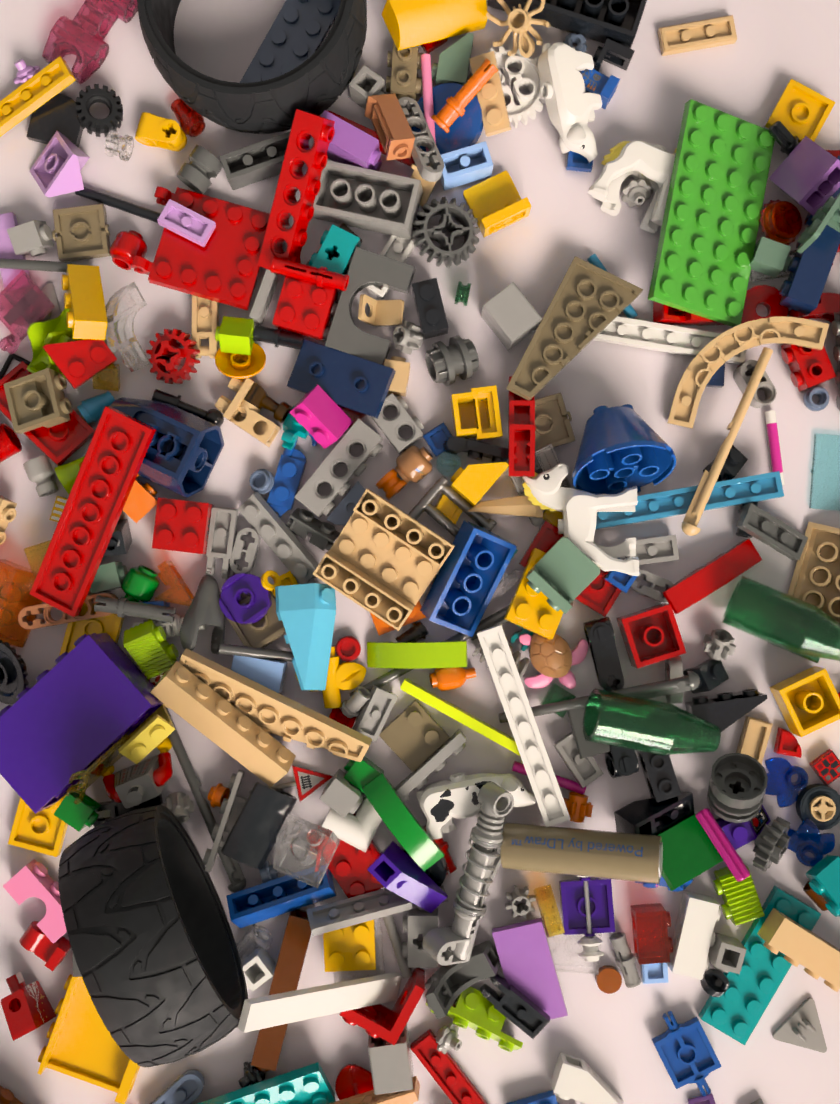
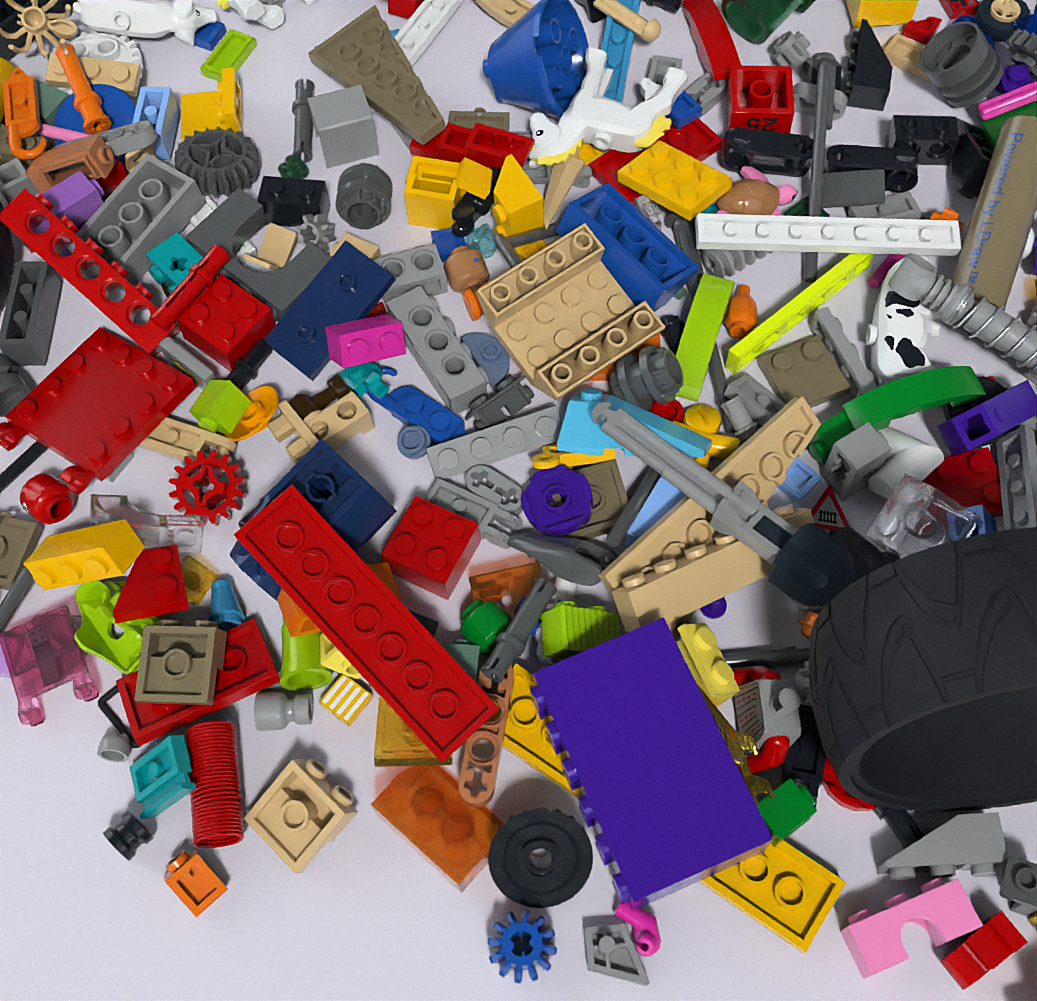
camera: 70 degrees left, 25 degrees down
(186, 223) = (54, 408): lavender plate -> none
(236, 781) = (804, 561): none -> piece
(325, 758) = (799, 481): none -> light blue tile
(358, 630) = (650, 377): none -> dark grey piece
(427, 59) = (22, 113): none -> orange plate
(483, 443) = (474, 178): none -> yellow tile
(519, 277) = (302, 120): none -> dark grey pin
(562, 187) = (229, 53): none -> lime tile
(562, 574) = (659, 137): sand green bracket -> none
(646, 725) = (861, 117): clear green piece -> none

